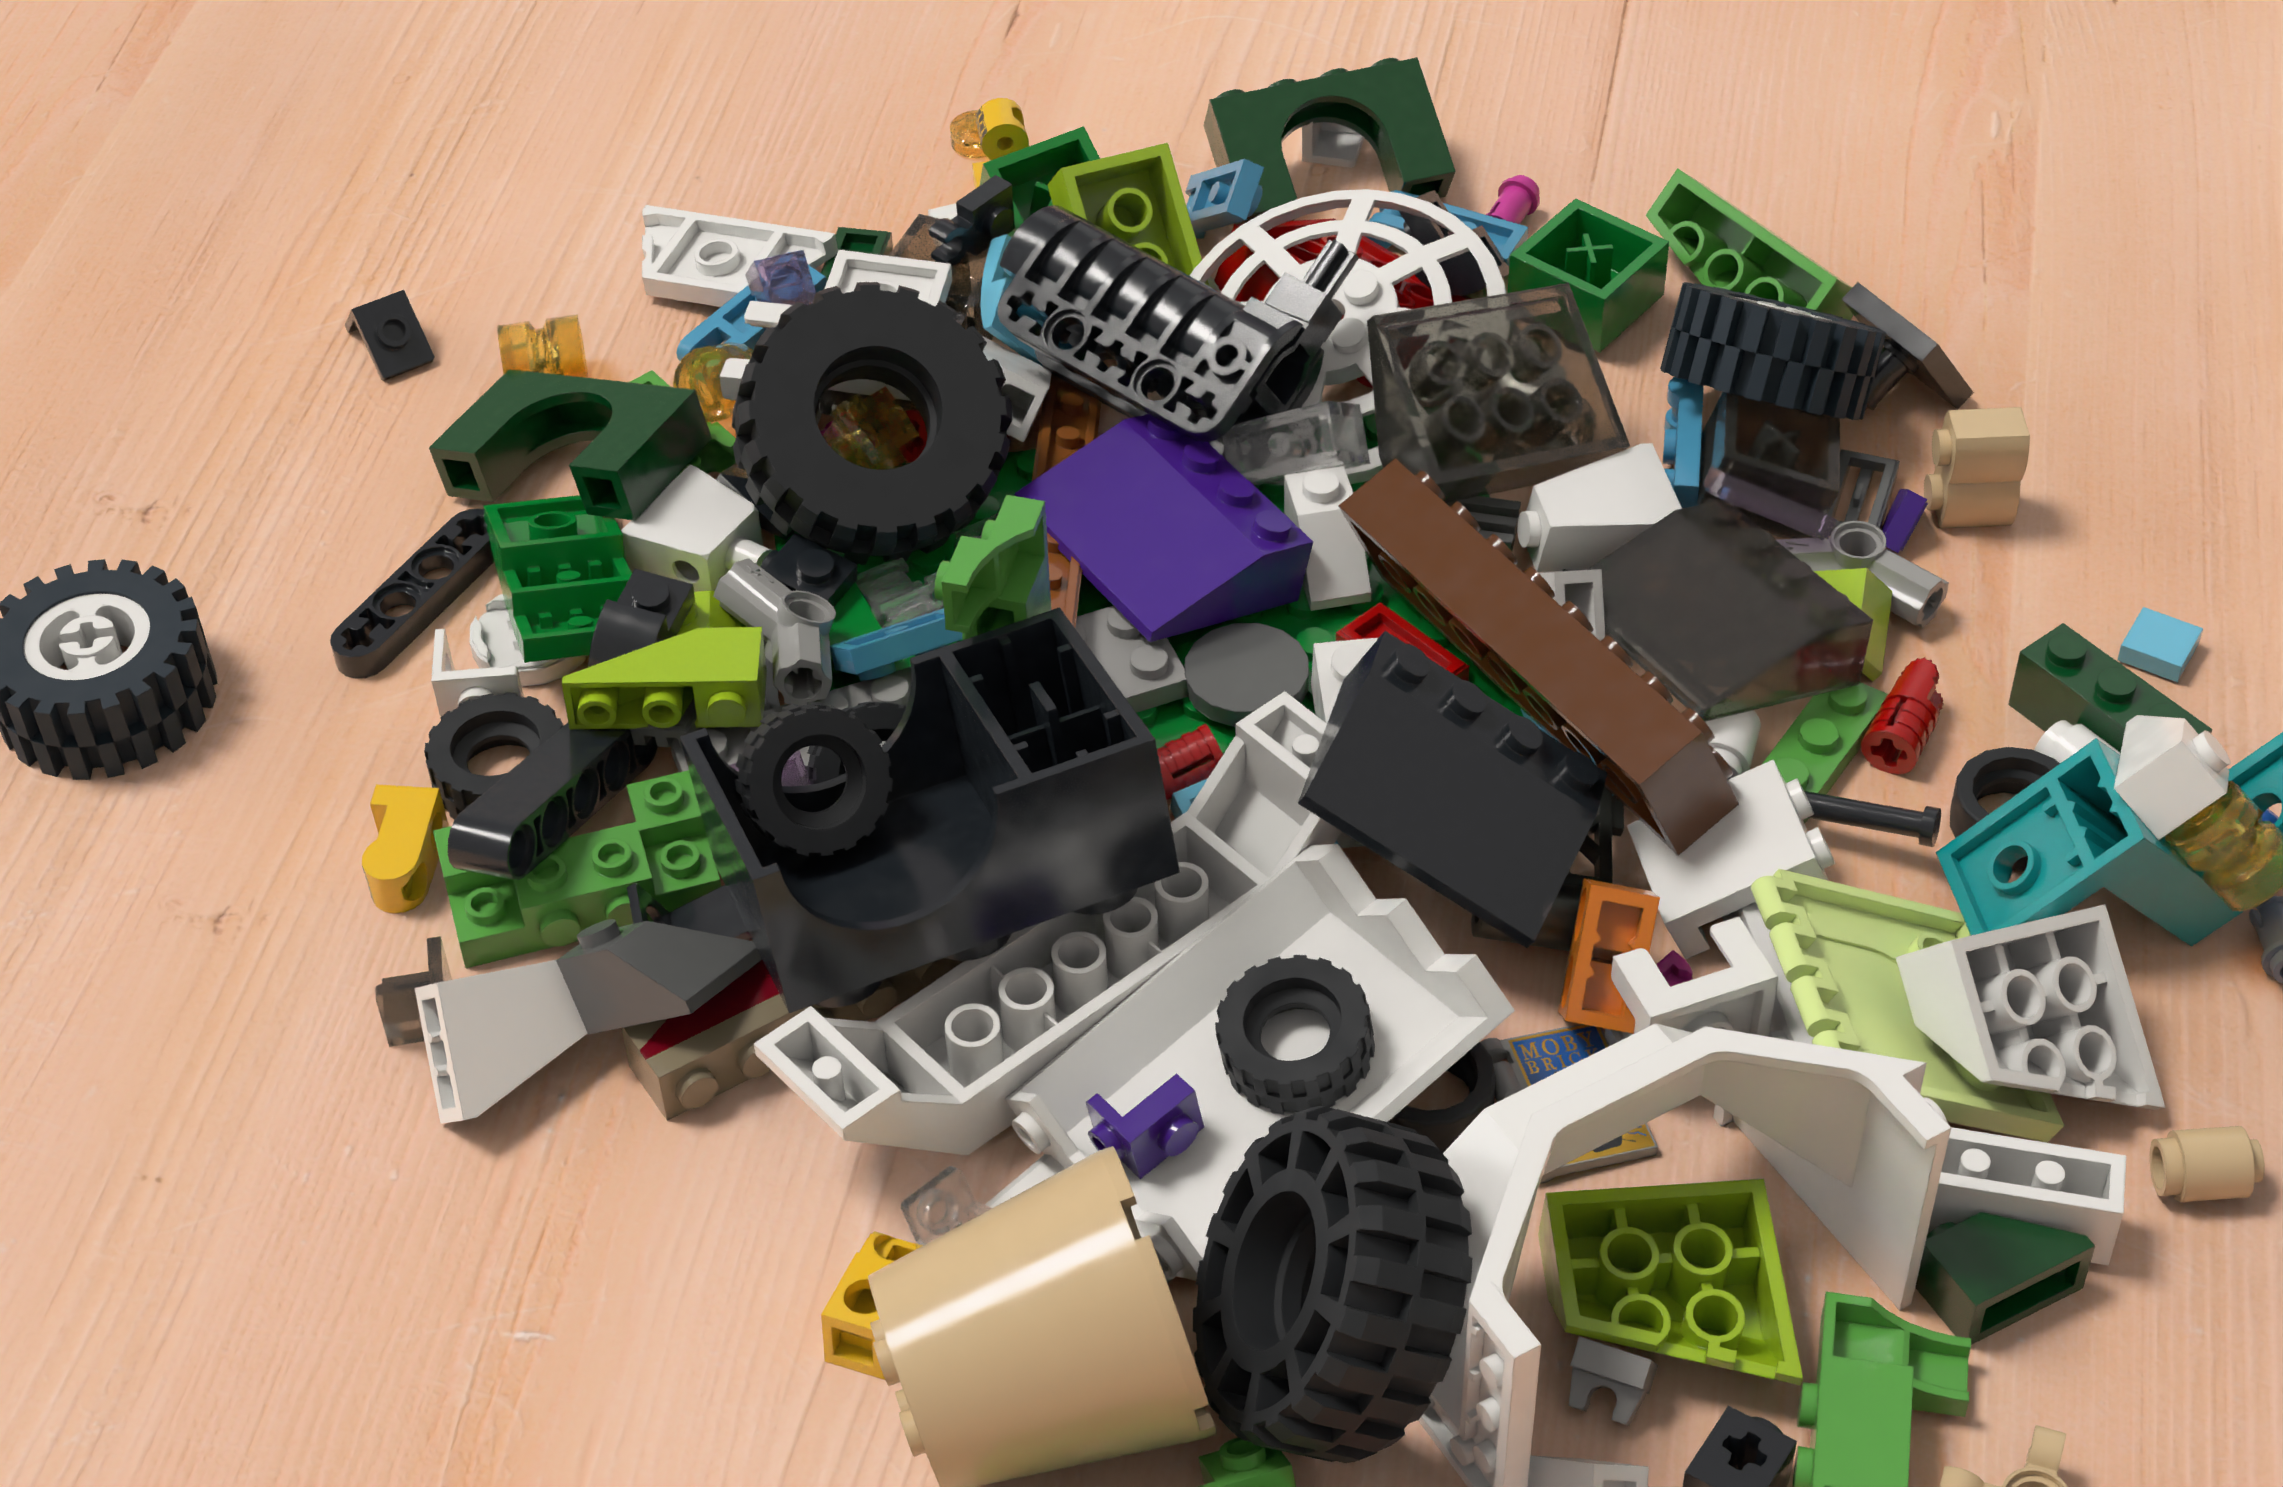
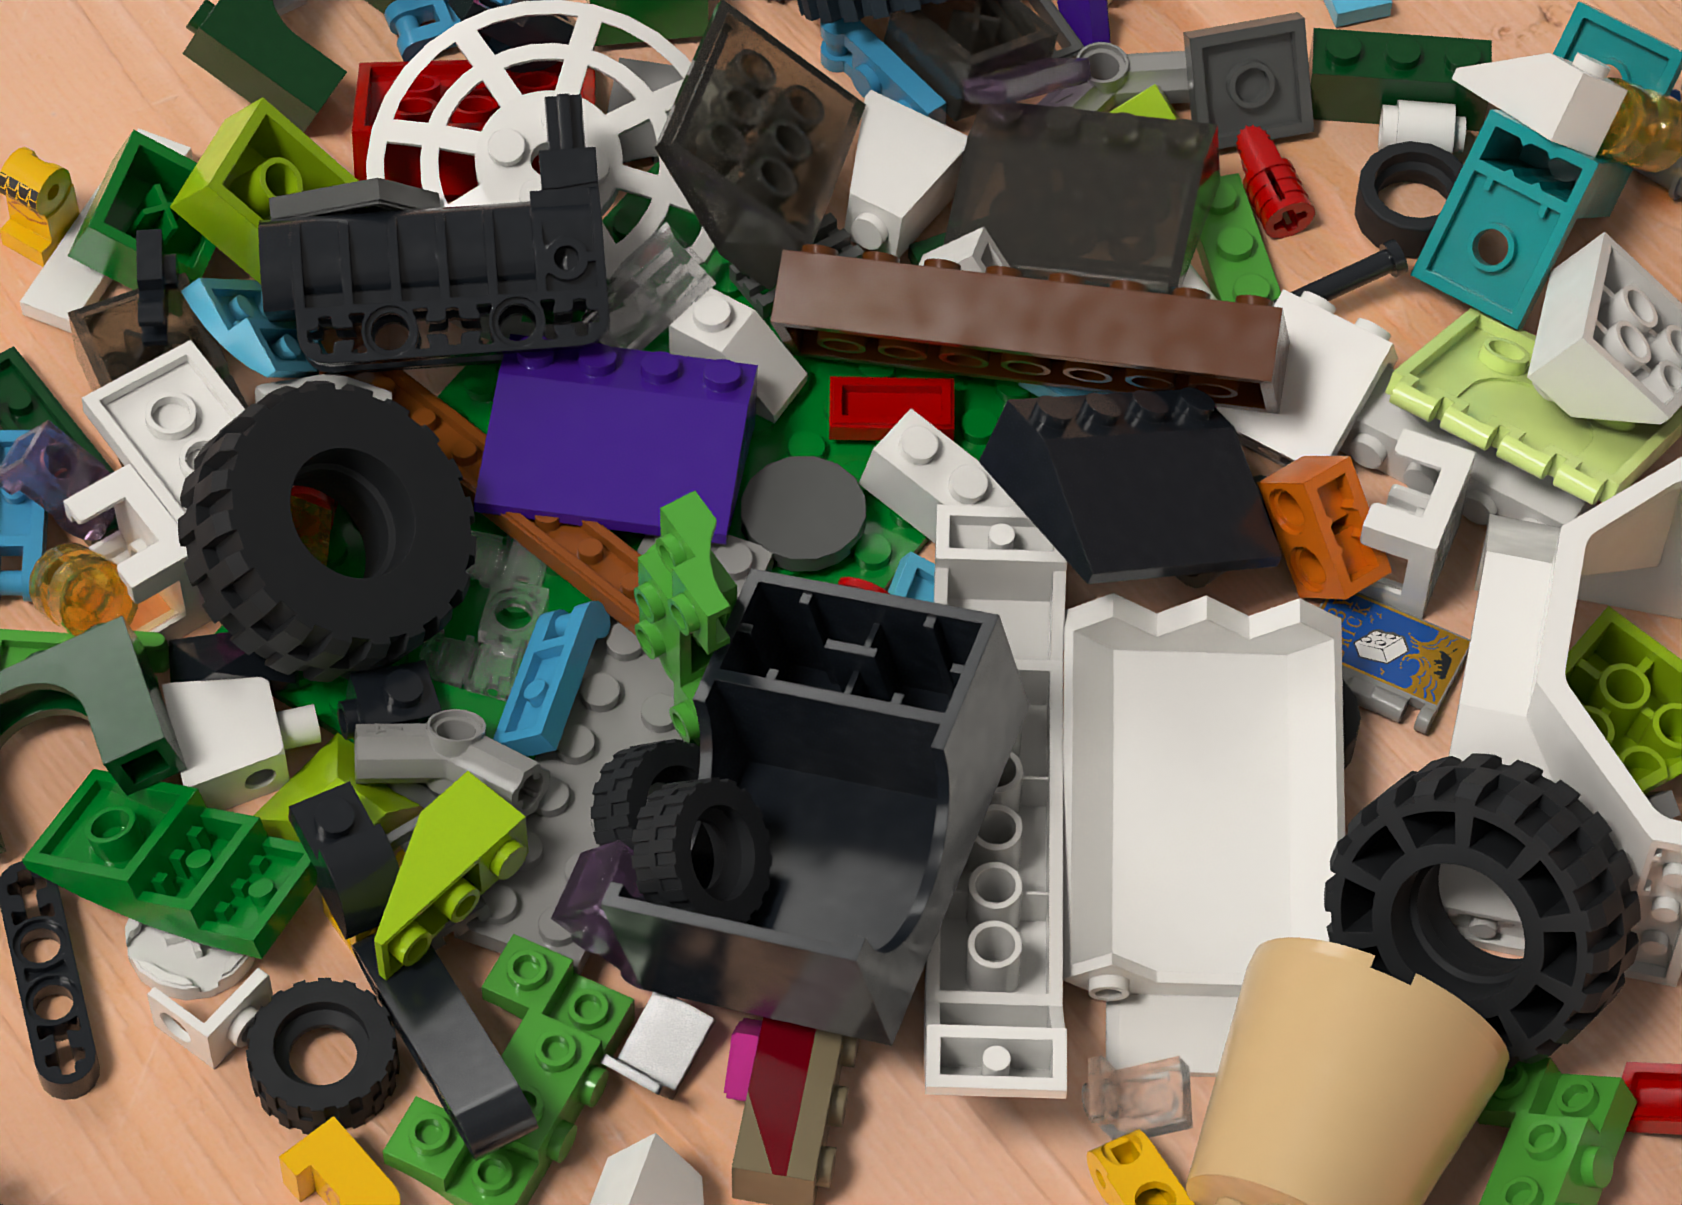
camera: 50 degrees left, 10 degrees up
(649, 971) = (730, 1109): dark grey slope -> none
(1150, 1131) = (1197, 904): dark purple bracket -> none
(1154, 239) = (353, 198): none -> dark grey tile
(1223, 195) = (315, 103): dark azure plate -> none
(1284, 987) = (1216, 711): black tyre -> none
(1967, 625) = (1251, 76): none -> dark grey tile

